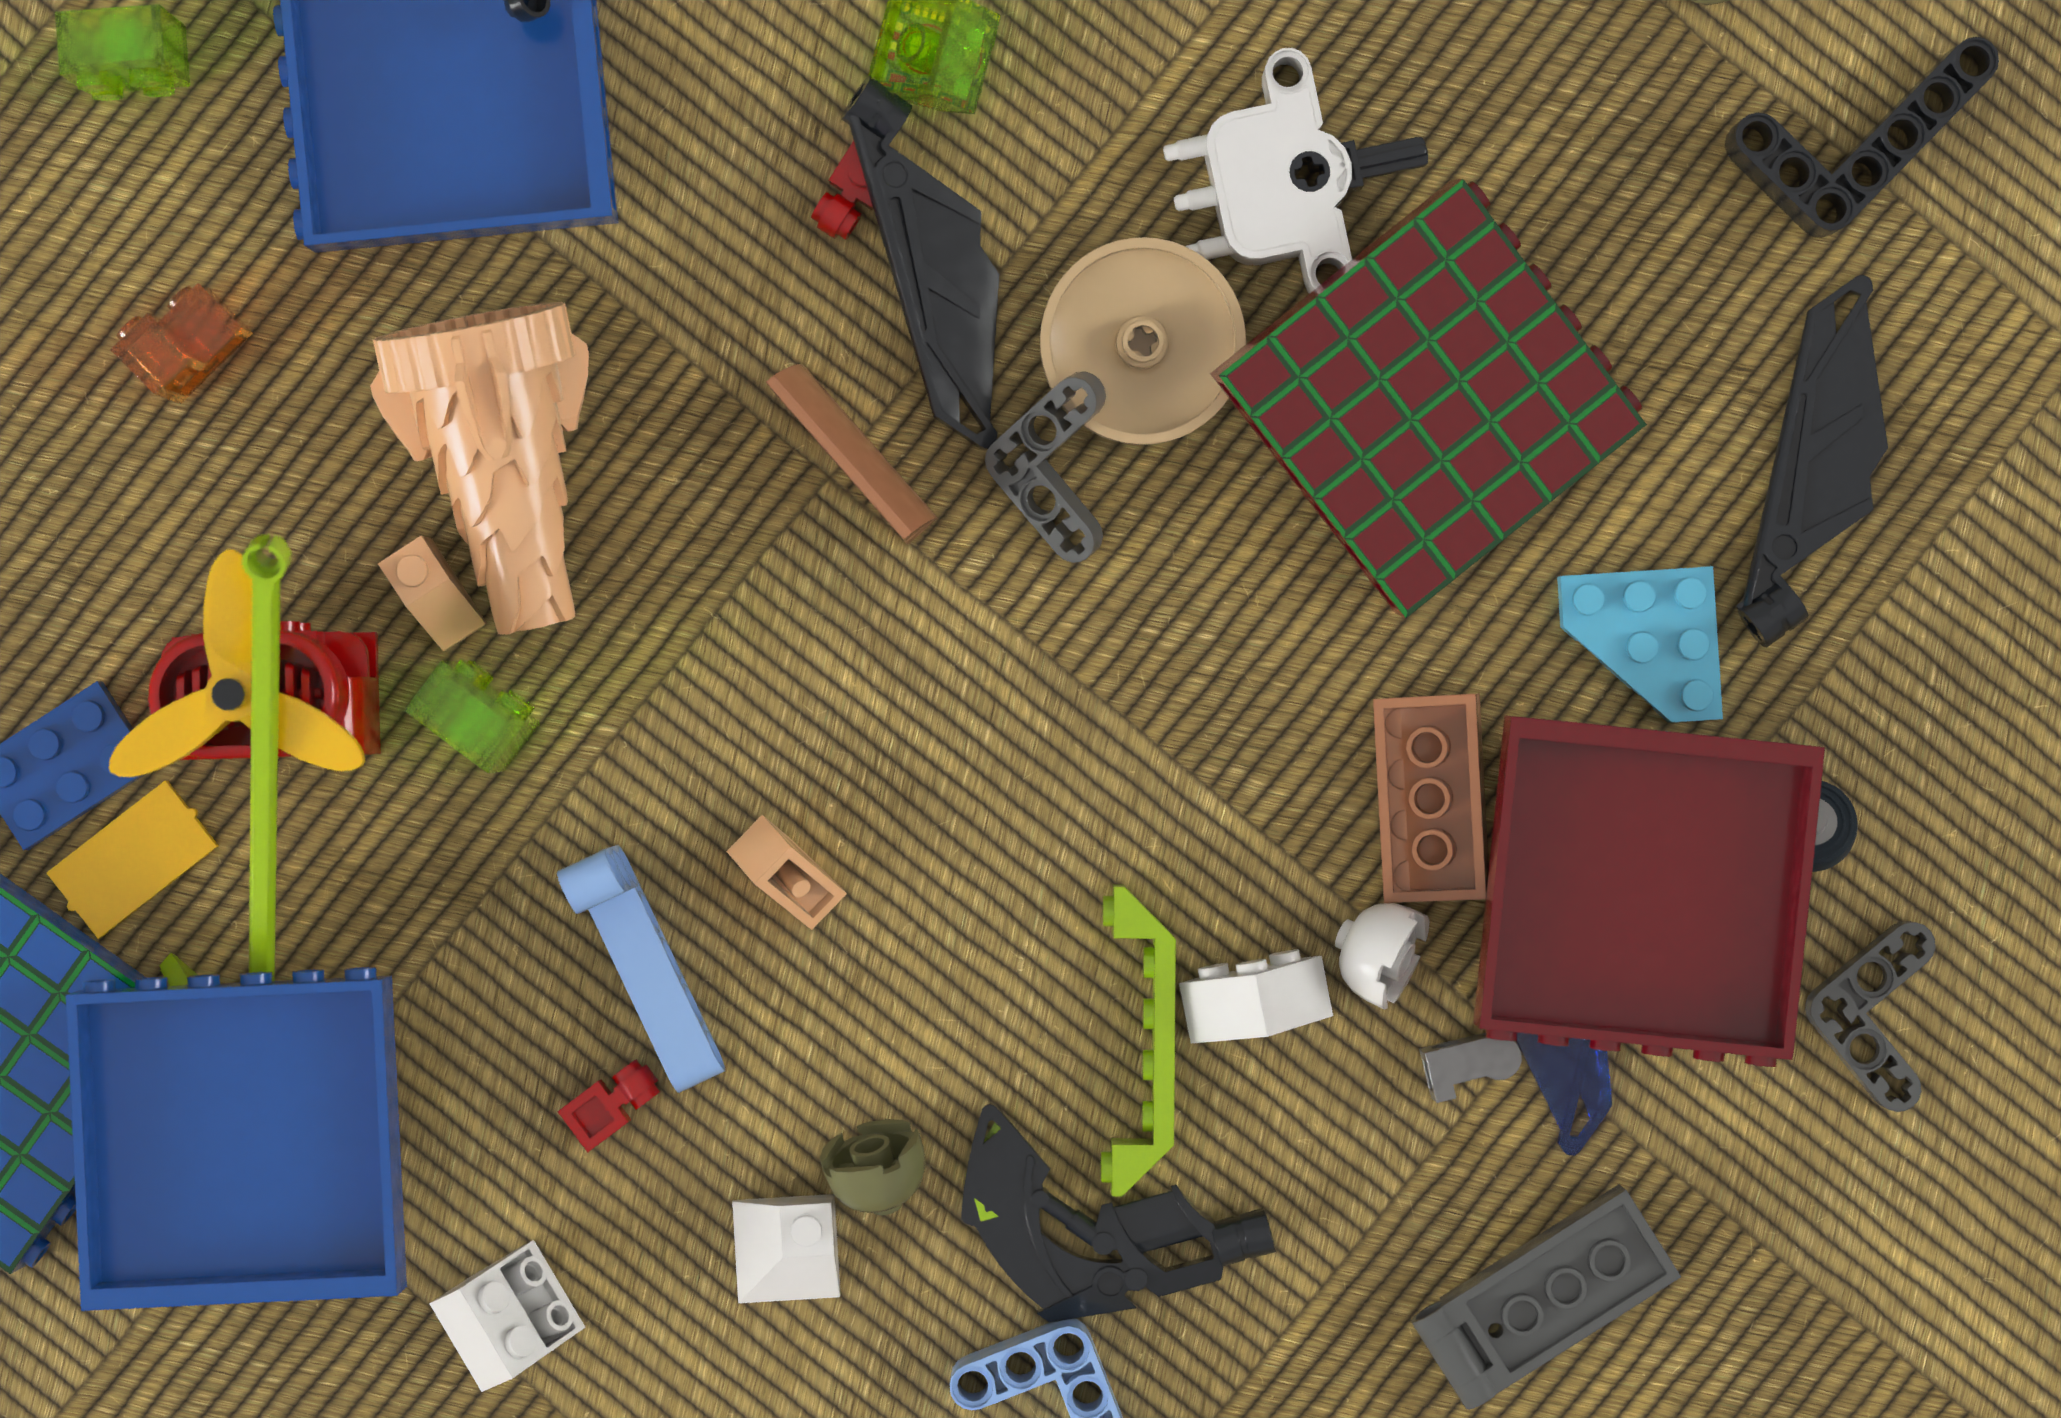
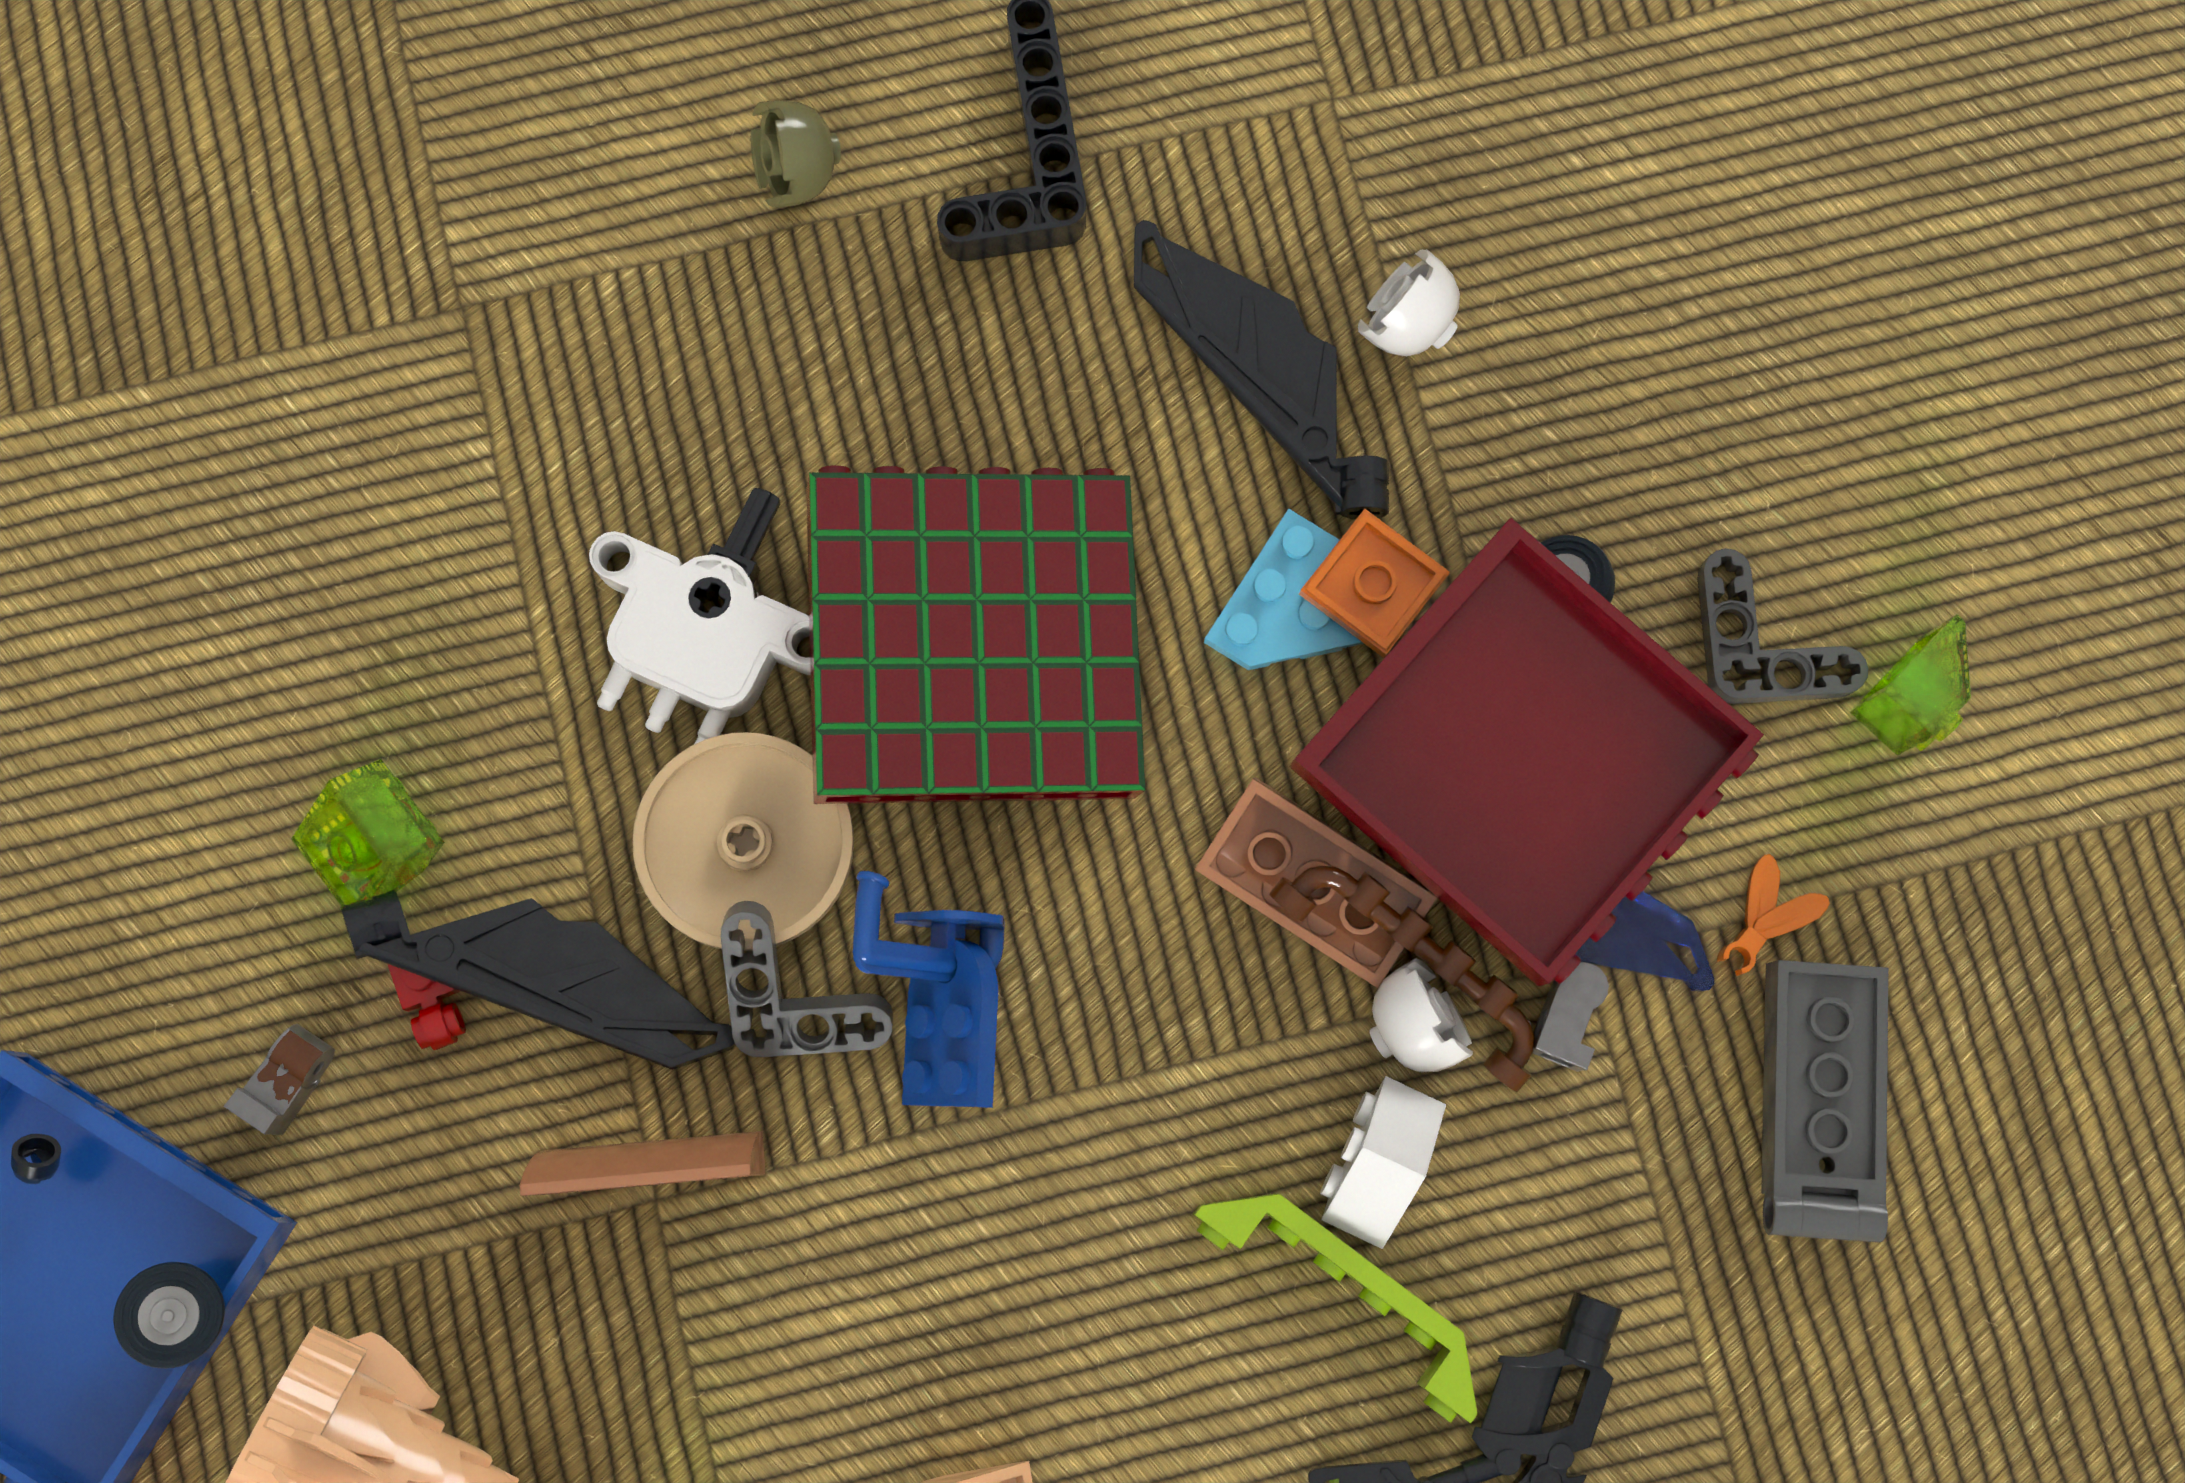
camera: 60 degrees left, 10 degrees down
(493, 190) = (169, 1315): none -> black wheel
(712, 132) = (282, 1081): none -> flat silver leg
(1137, 586) = (949, 996): none -> blue plate
(1444, 898) = (1411, 932): none -> reddish brown bar
(1654, 1161) = (1766, 920): none -> orange piece
(1700, 676) = (1374, 583): none -> orange tile
(1920, 1158) = (1920, 691): none -> clear neon green slope
(1950, 547) = (1414, 308): none -> white cylinder

